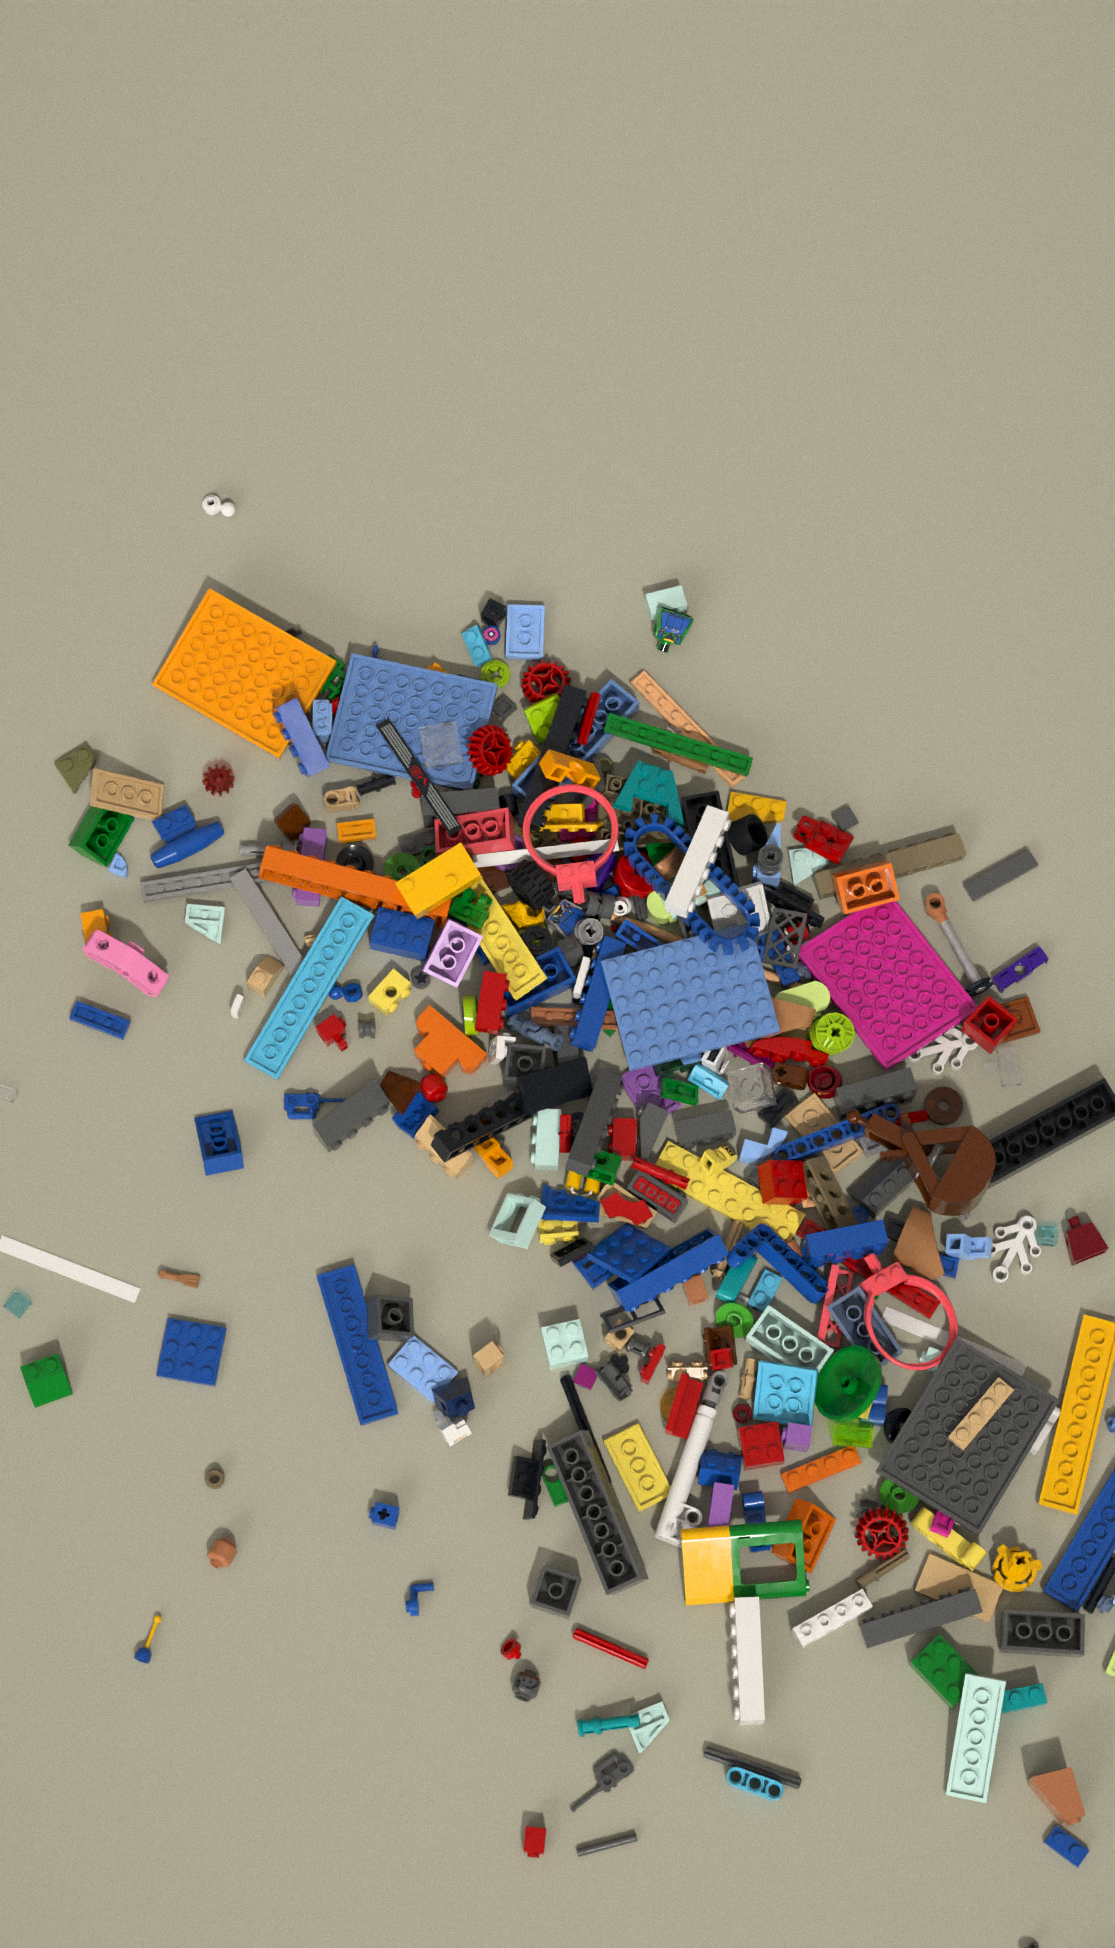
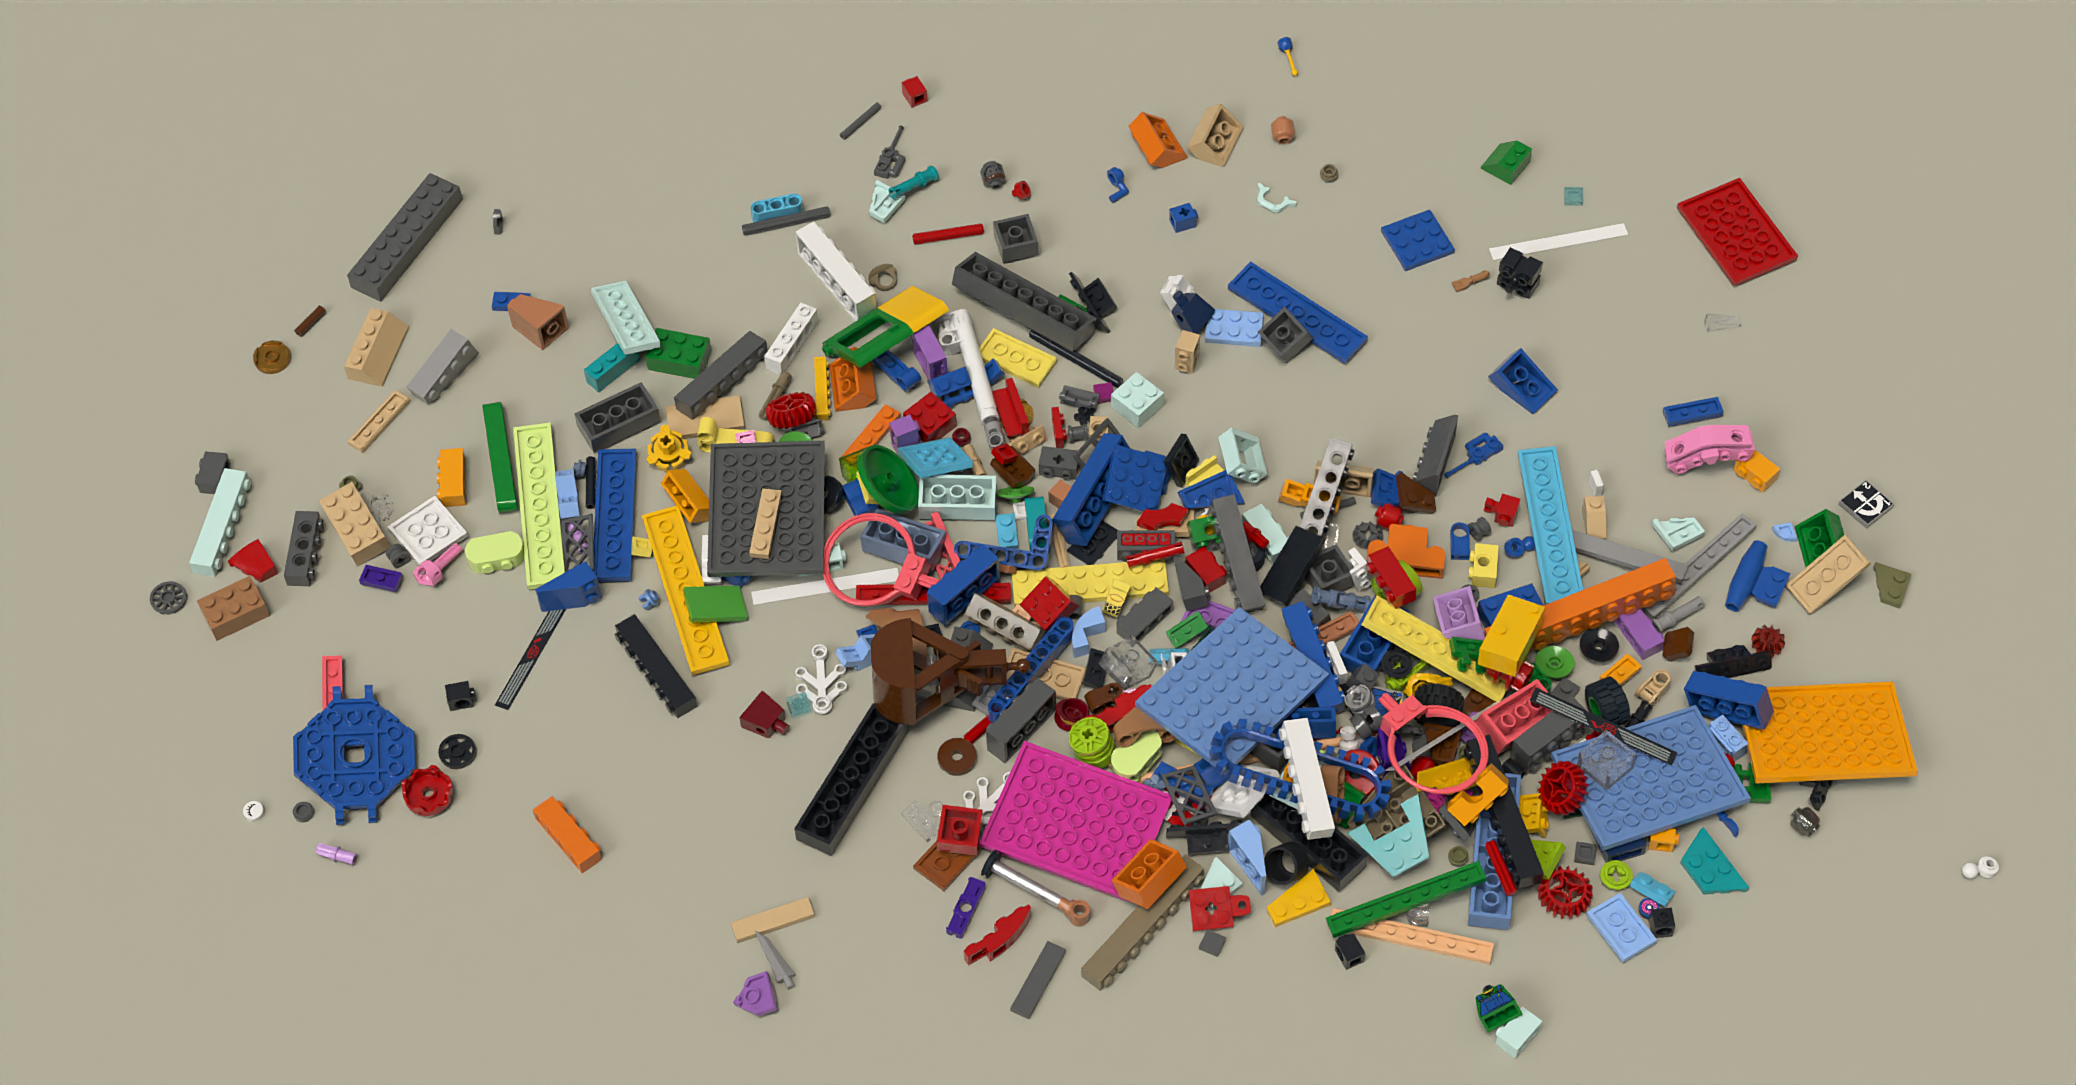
camera: 150 degrees right, 15 degrees down
(33, 847) = (1866, 504): none -> tile
(140, 1244) = (1519, 273): none -> black brick
(262, 785) = (1735, 662): none -> black bracket
(276, 1473) = (1273, 207): none -> light aqua helmet
(289, 1590) = (1215, 135): none -> tan slope
(318, 621) = (1804, 821): none -> clear smoke head
(345, 1621) = (1156, 140): none -> orange slope
(394, 801) = (1608, 700): none -> black wheel
(394, 1026) = (1460, 545): none -> blue piece
(418, 636) = (1710, 867): none -> teal wing
(462, 1096) = (1360, 531): none -> dark grey gear
(670, 1461) = (994, 371): none -> blue plate
(678, 1336) = (1058, 463): none -> dark grey brick
(685, 1230) = (1098, 544): none -> black piece
(712, 1641) = (873, 276): none -> dark tan piece
(746, 741) = (1349, 951): none -> black brick
(770, 860) = (1247, 829): dark grey wheel -> none
(833, 1552) = (821, 385): none -> yellow piece
(1002, 925) = (1006, 933): none -> red slope
(1025, 1505) = (686, 495): none -> light orange brick
(1065, 1376) = (715, 604): none -> bright green tile
(1095, 1481) = (641, 547): none -> light yellow plate

